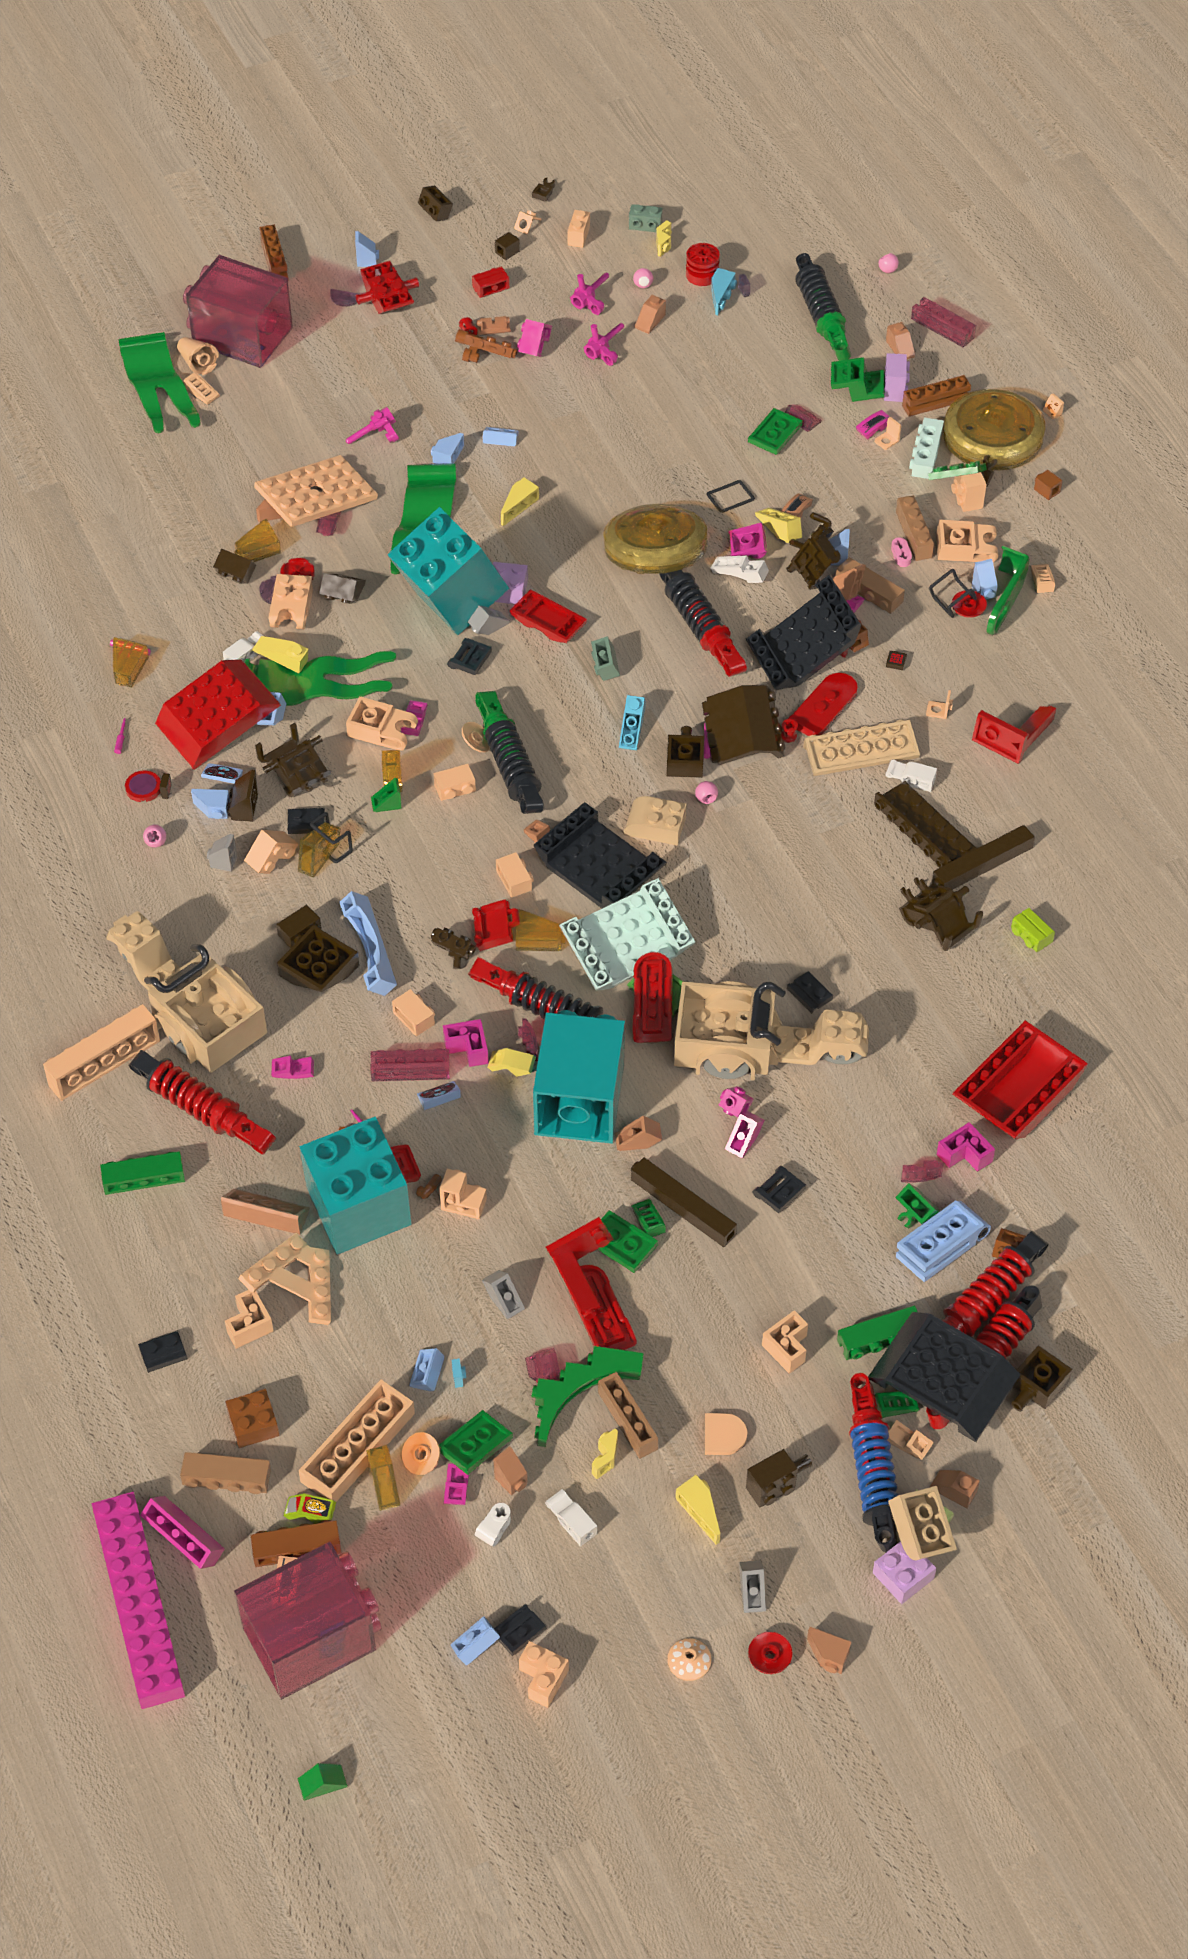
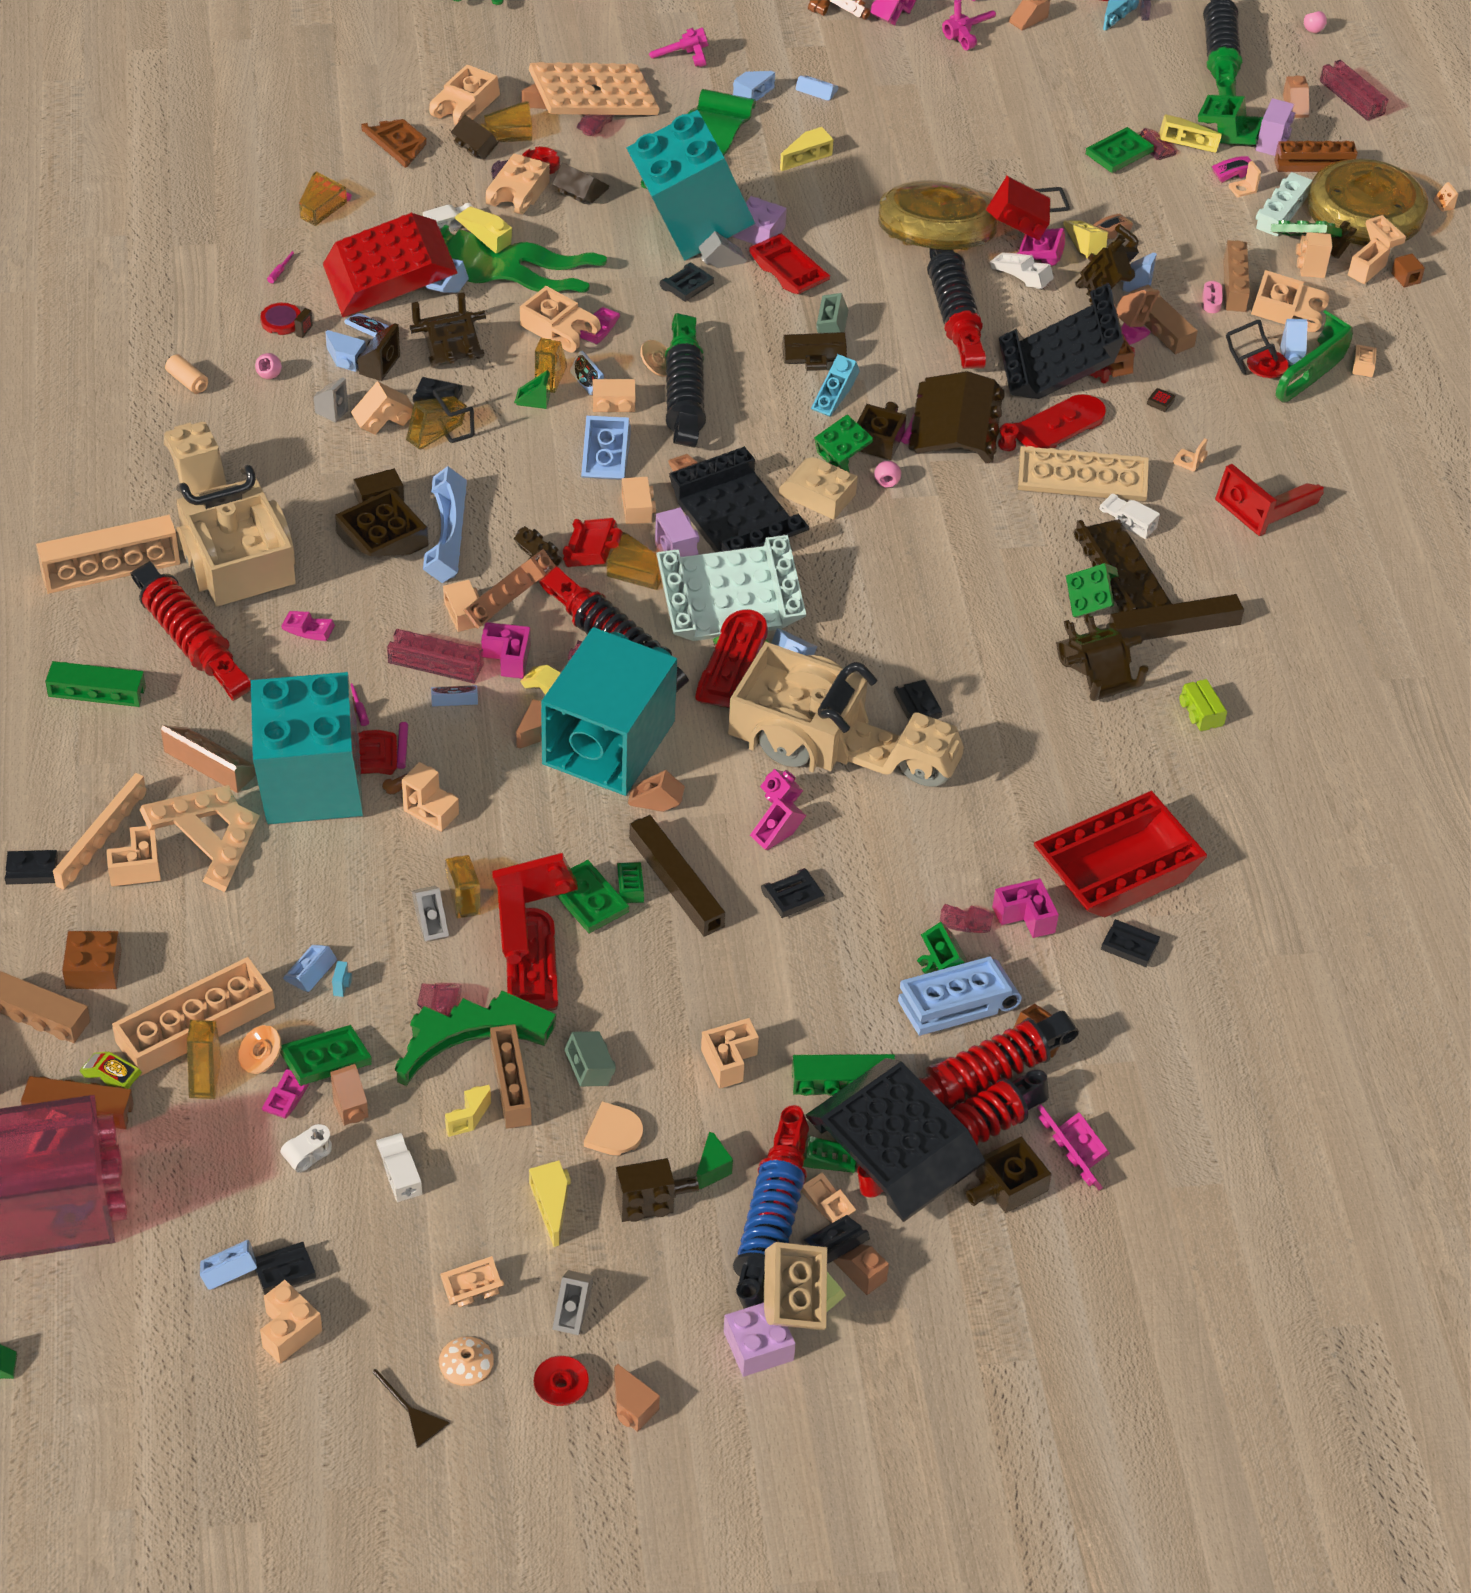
camera: 15 degrees right, 5 degrees down
(88, 862) = (186, 374): none -> light nougat brick
(167, 584) = (397, 139): none -> dark orange wing
(205, 1309) = (99, 831): none -> light nougat plate
(209, 526) = (466, 94): none -> light nougat brick
(416, 1152) = (402, 745): none -> dark pink piece
(422, 766) = (585, 371): none -> slope
(445, 988) = (509, 588): none -> nougat slope
(469, 834) = (606, 447): none -> light blue slope
(519, 1101) = (530, 726): none -> nougat slope
(521, 1262) = (463, 886): none -> clear yellow slope
(562, 901) = (675, 532): none -> lavender brick
(604, 689) = (813, 347): none -> dark brown piece
(661, 775) = (841, 442): none -> green bracket
(669, 1594) = (472, 1281): none -> light nougat bracket
(678, 1720) = (423, 1424): none -> dark brown piece
(682, 1381) = (590, 1058): none -> sand green brick
(693, 972) = (793, 643): none -> light blue slope
(725, 517) = (1021, 207): none -> red slope
(812, 1436) = (714, 1163): none -> green slope
(826, 401) = (1189, 134): none -> light yellow slope
(910, 854) = (1091, 589): none -> green bracket
(929, 1470) = (839, 1237): none -> black plate
(1015, 485) = (1369, 261): none -> light nougat brick
(1021, 458) = (1384, 231): none -> light nougat slope
(1053, 1154) = (1130, 943): none -> black plate
(1080, 1333) = (1081, 1141): none -> dark pink bracket

